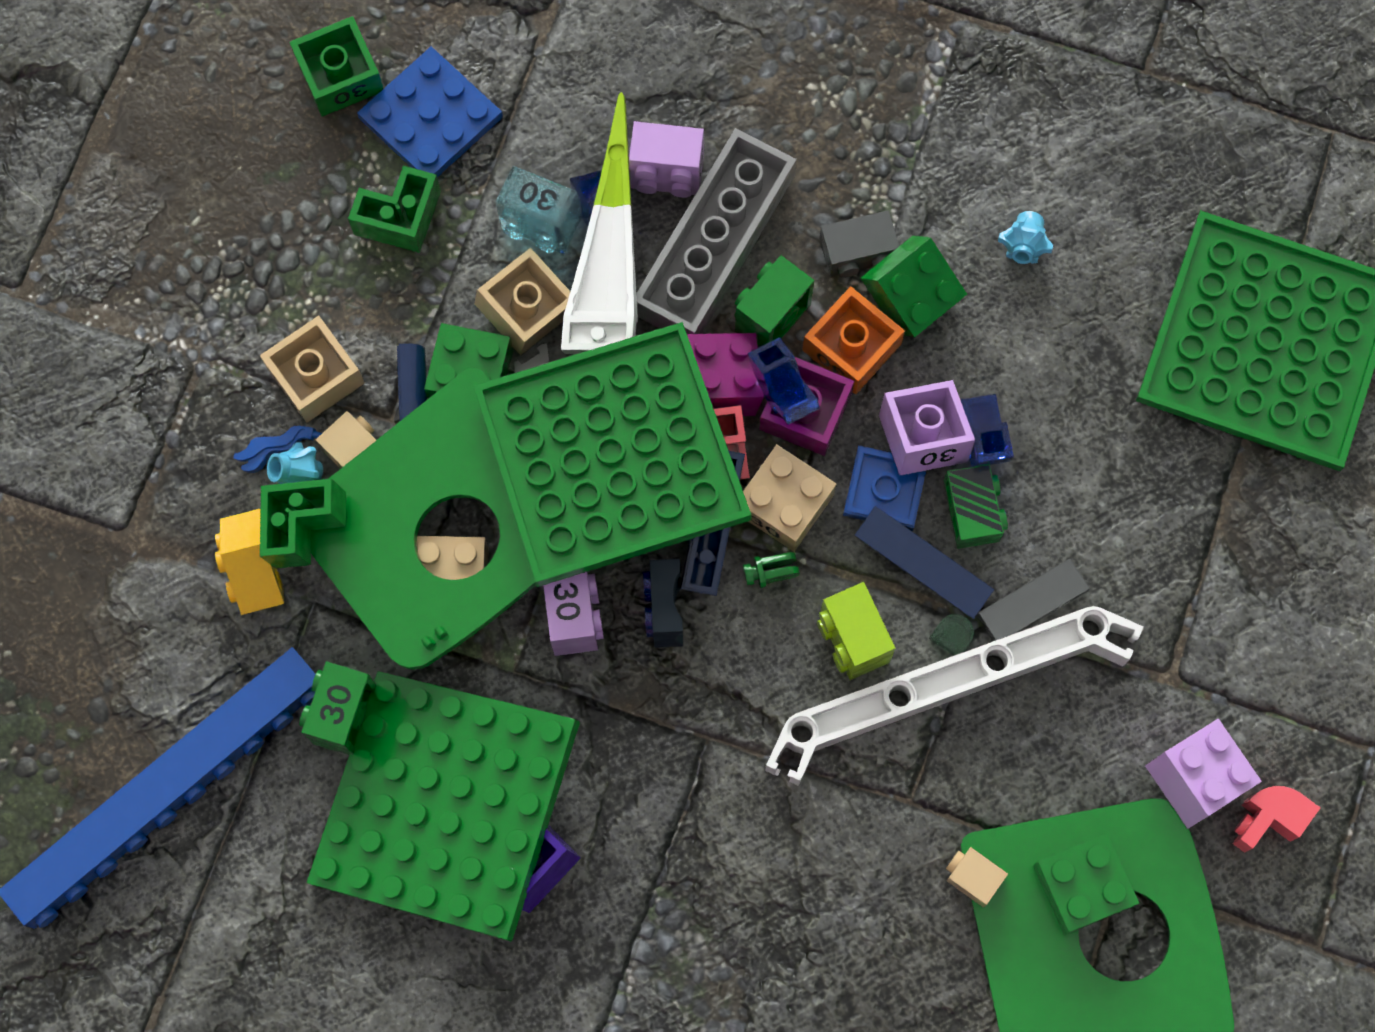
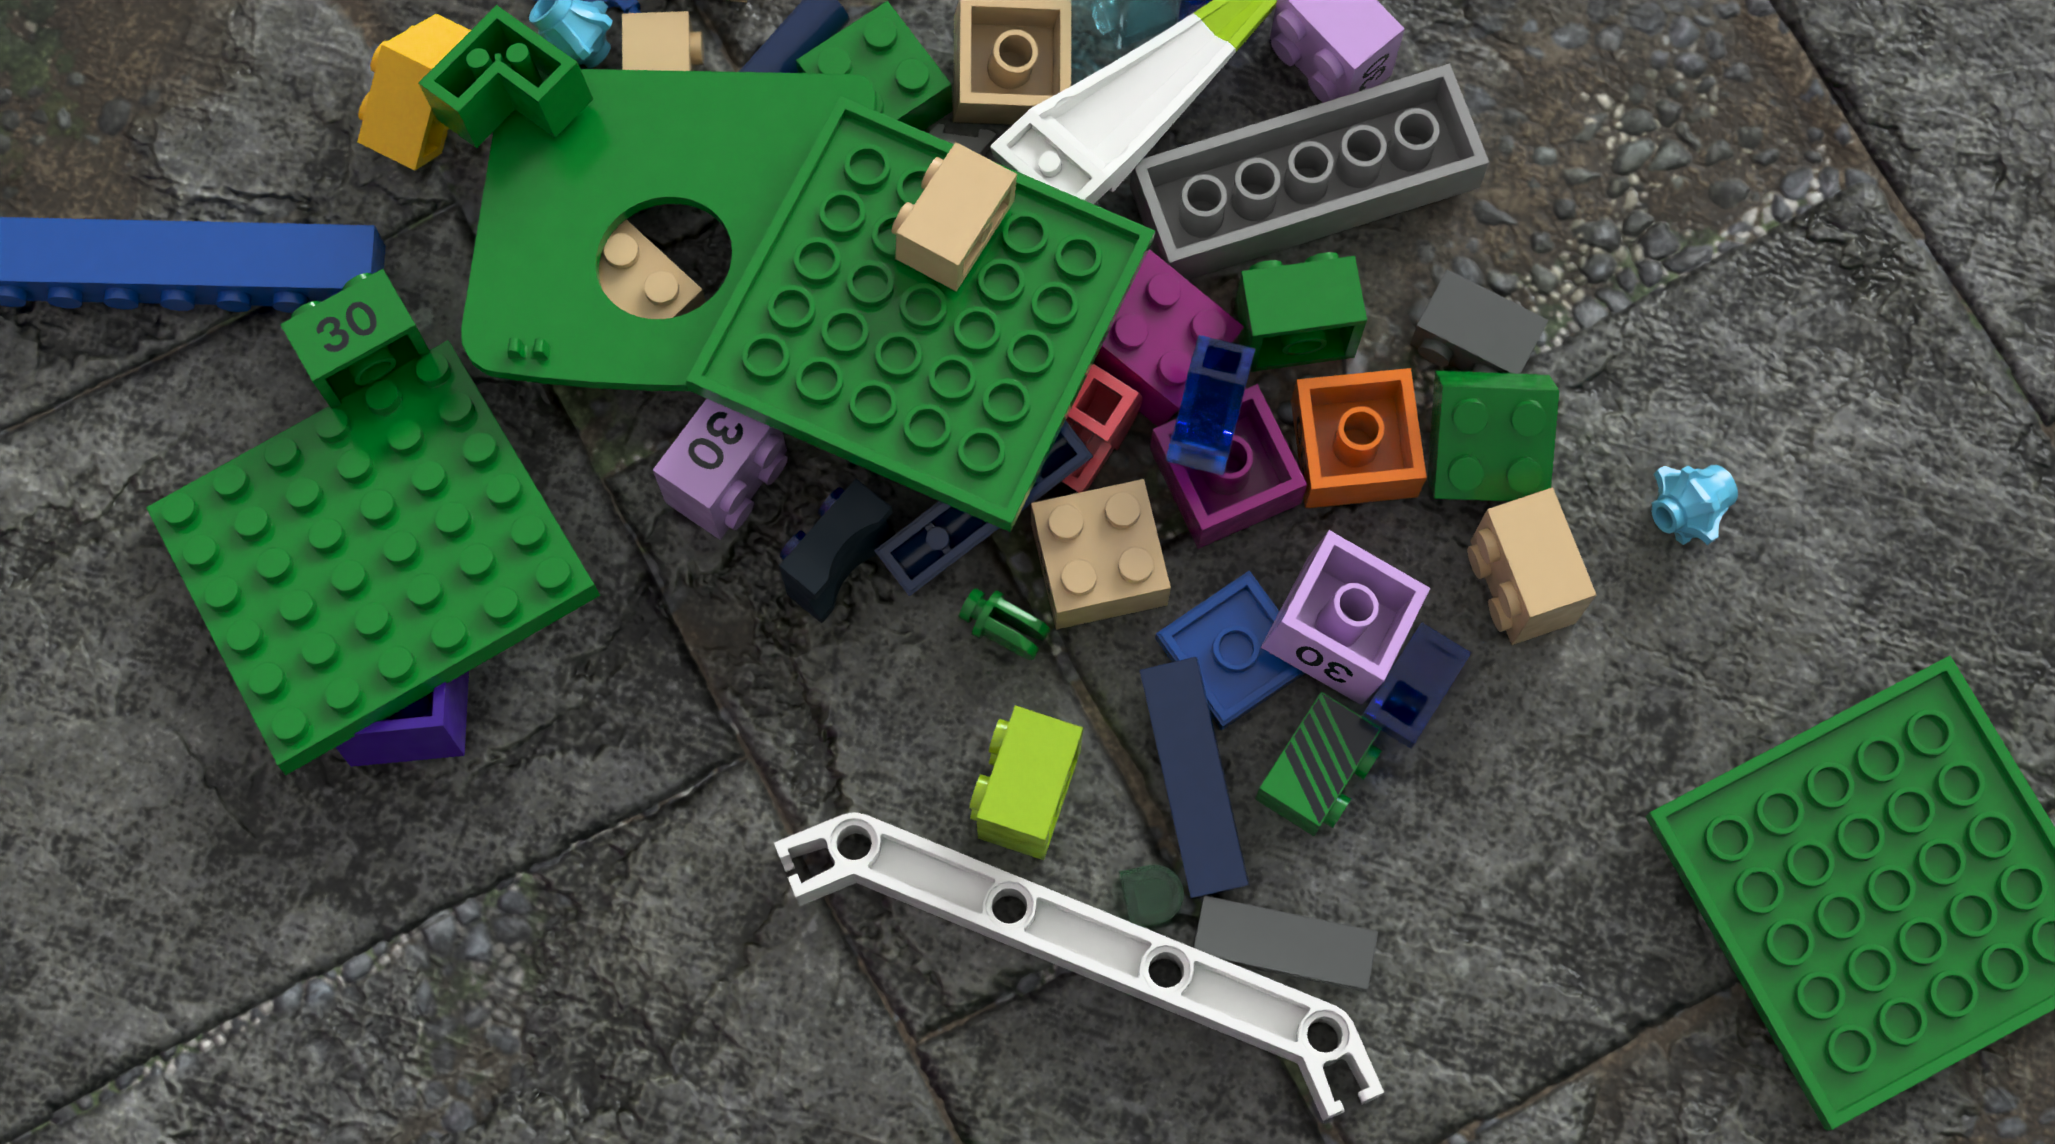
camera: 40 degrees right, 0 degrees up
(588, 394) = (954, 215): none -> tan brick
(986, 331) = (1530, 567): none -> tan brick

